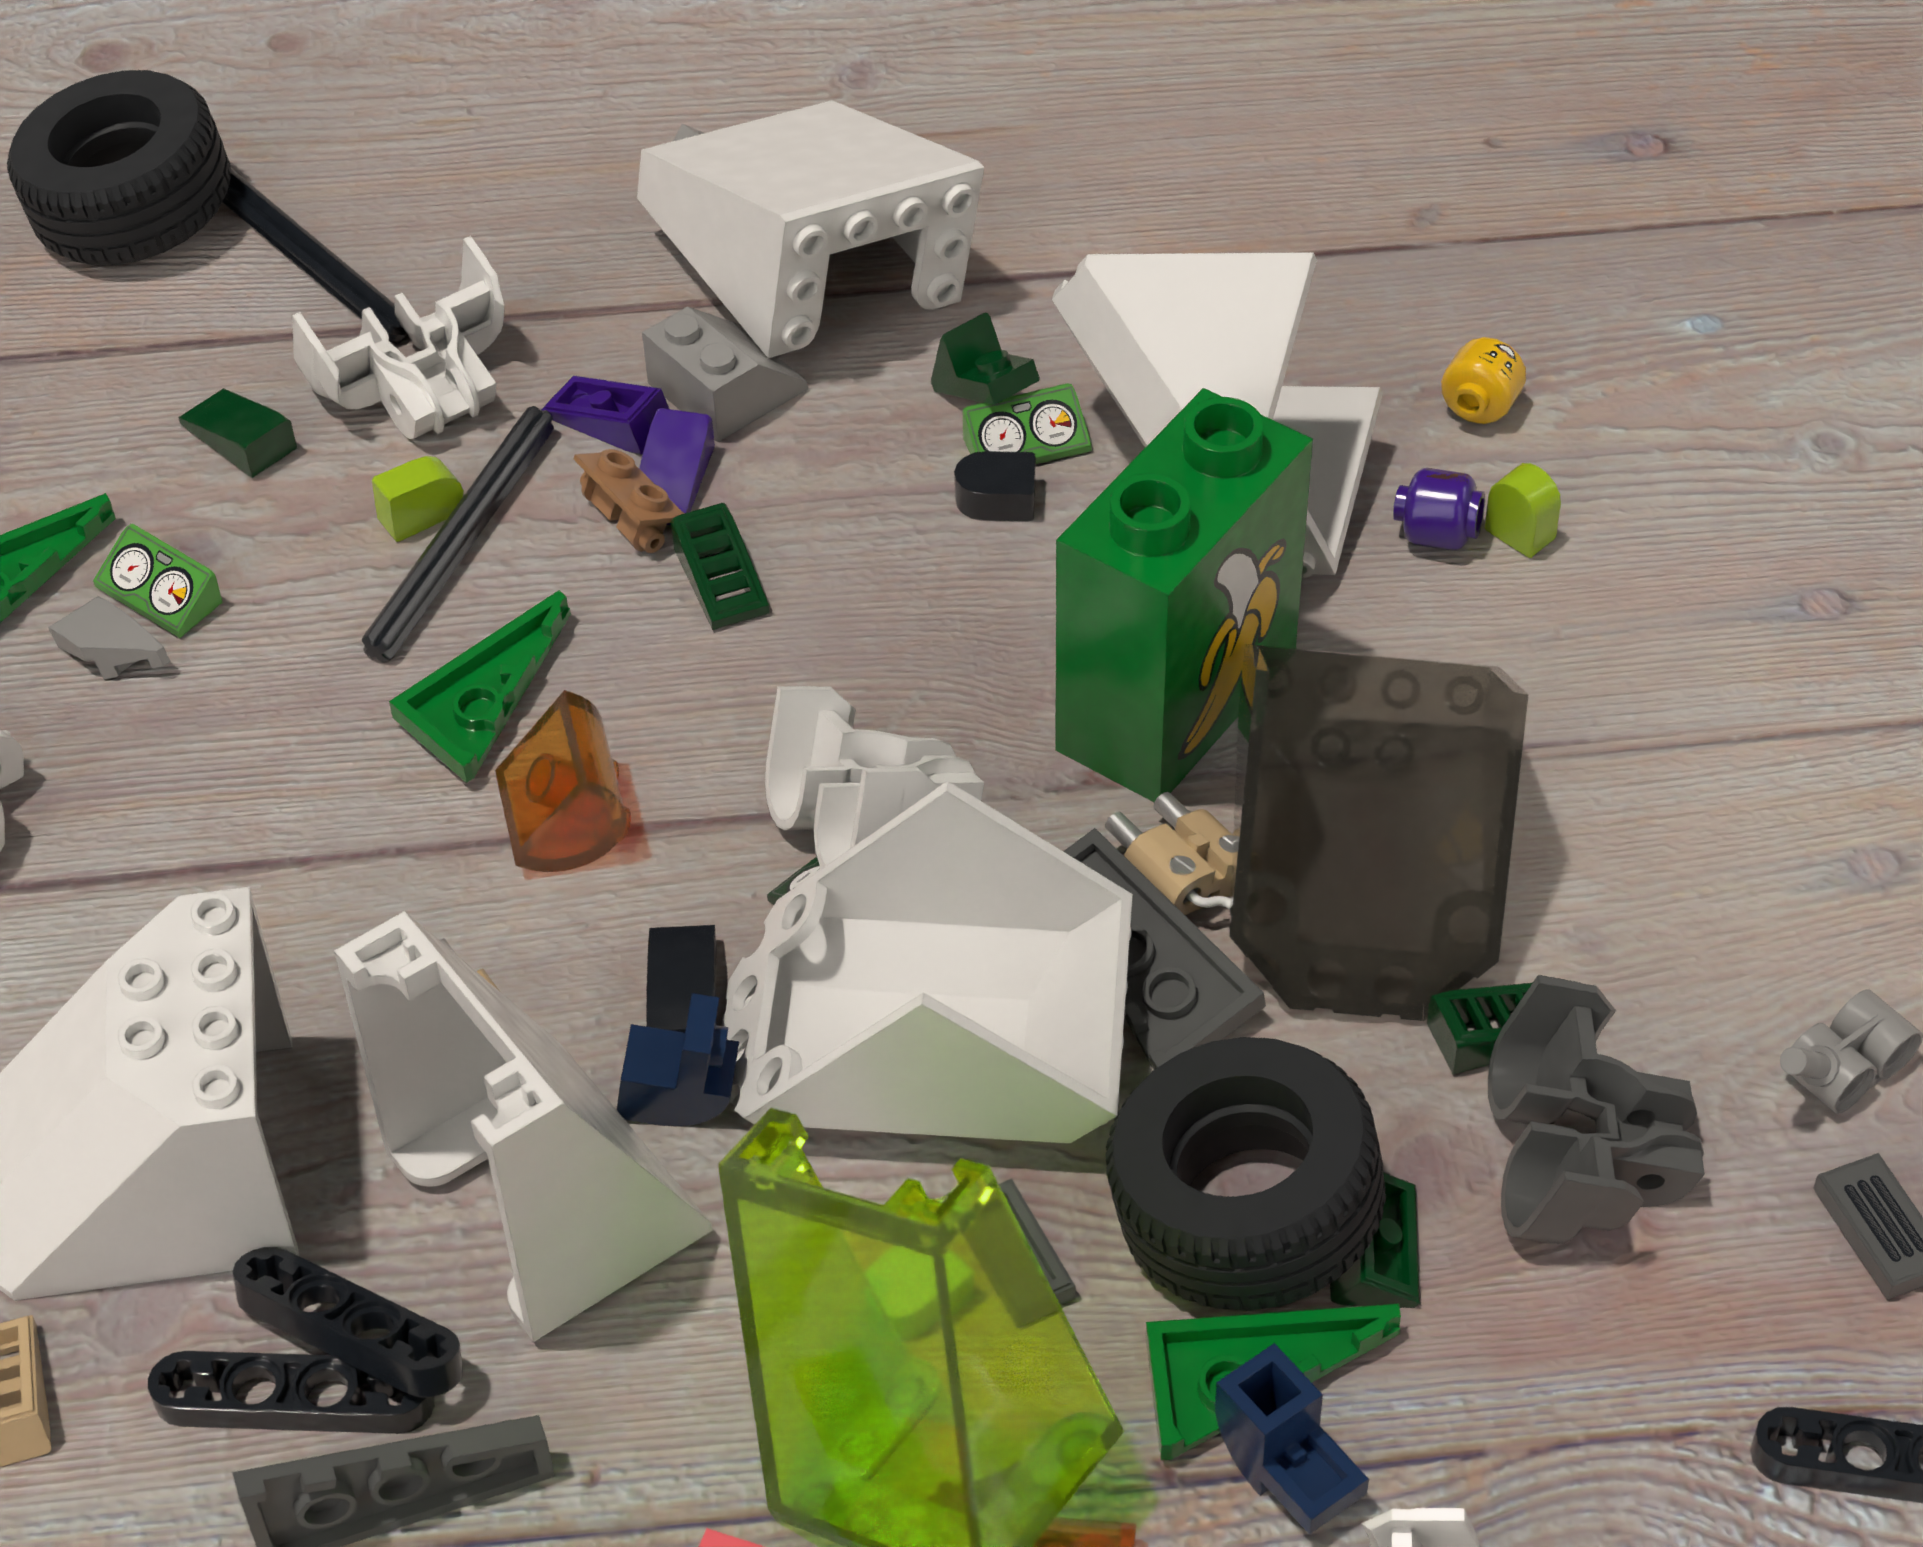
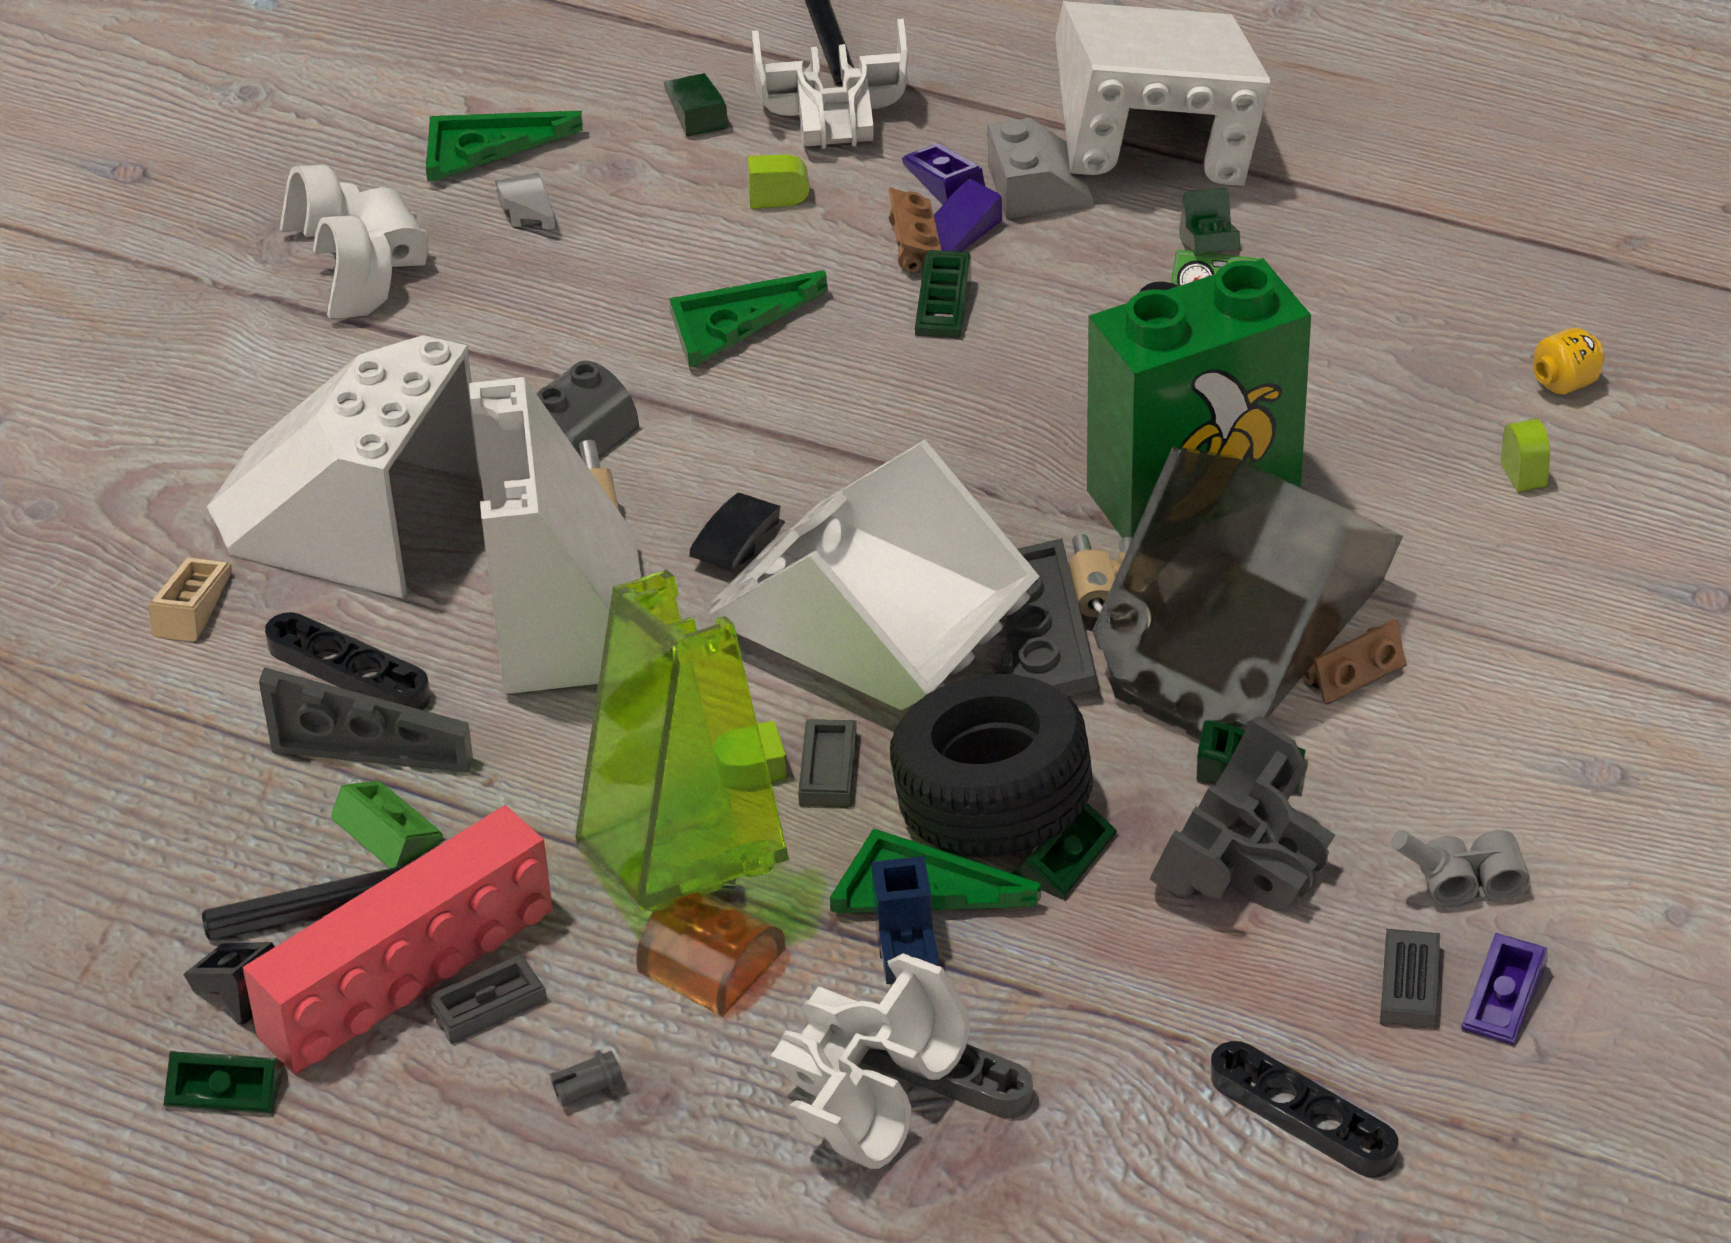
camera: 30 degrees right, 5 degrees down
(158, 581) = (580, 178): slope -> none
(360, 885) = (590, 406): none -> dark grey brick
(414, 1355) = (400, 634): black beam -> none
(457, 535) = (791, 214): black axle -> none
(563, 790) = (740, 389): clear orange brick -> none
(678, 1075) = (697, 568): dark blue brick -> none
(848, 778) = (923, 411): white piece -> none
(1226, 325) = (1362, 351): white windscreen -> none
(1440, 509) = (1465, 432): dark purple head -> none
(1539, 827) = (1357, 661): none -> medium nougat hinge

